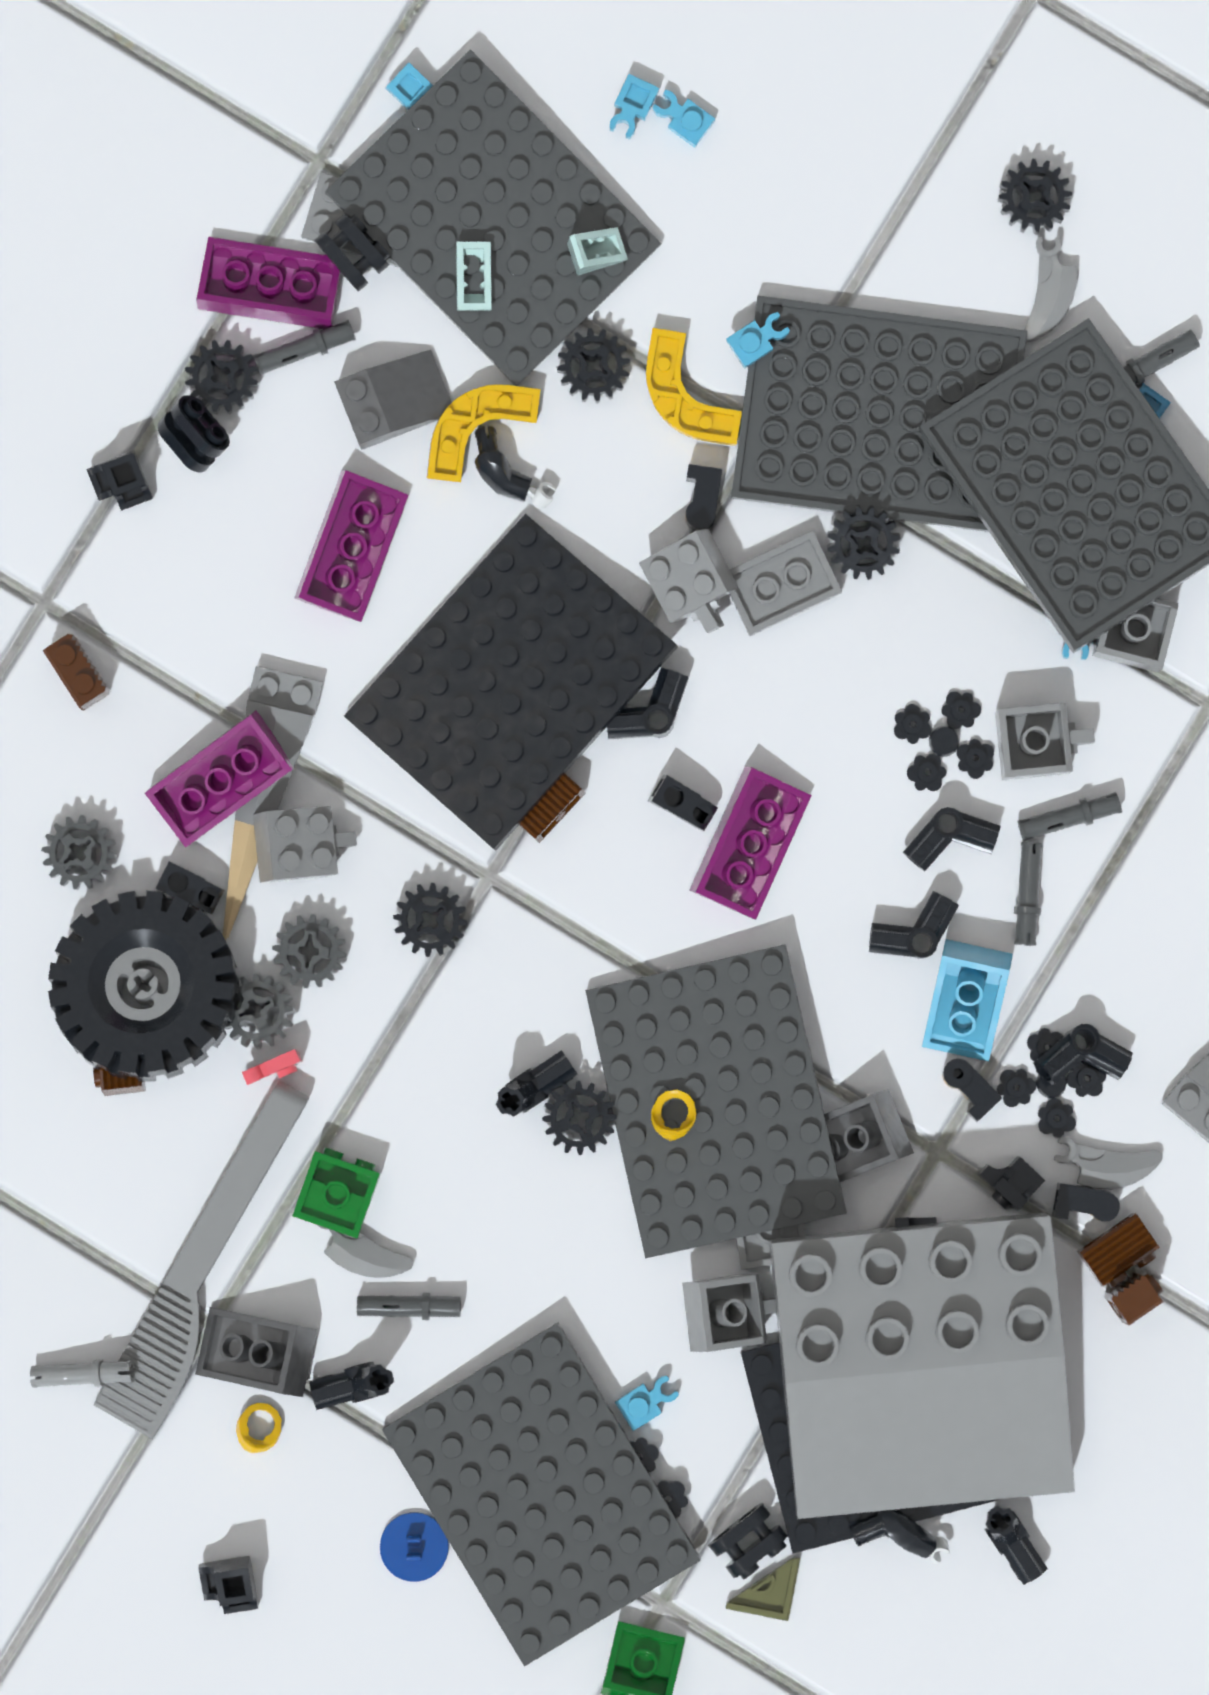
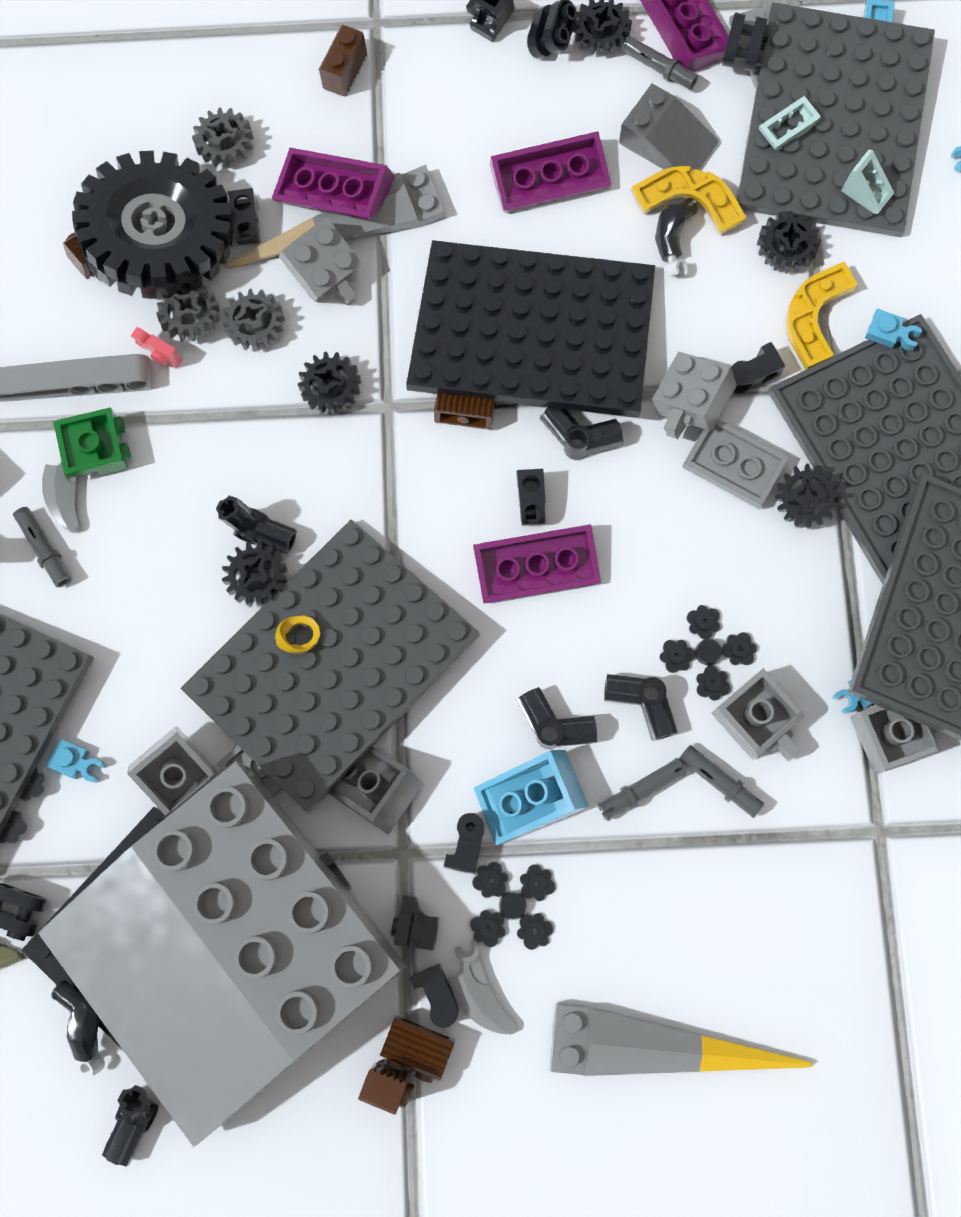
camera: 60 degrees right, 10 degrees down
(1098, 1053) = (540, 900): black piece -> none

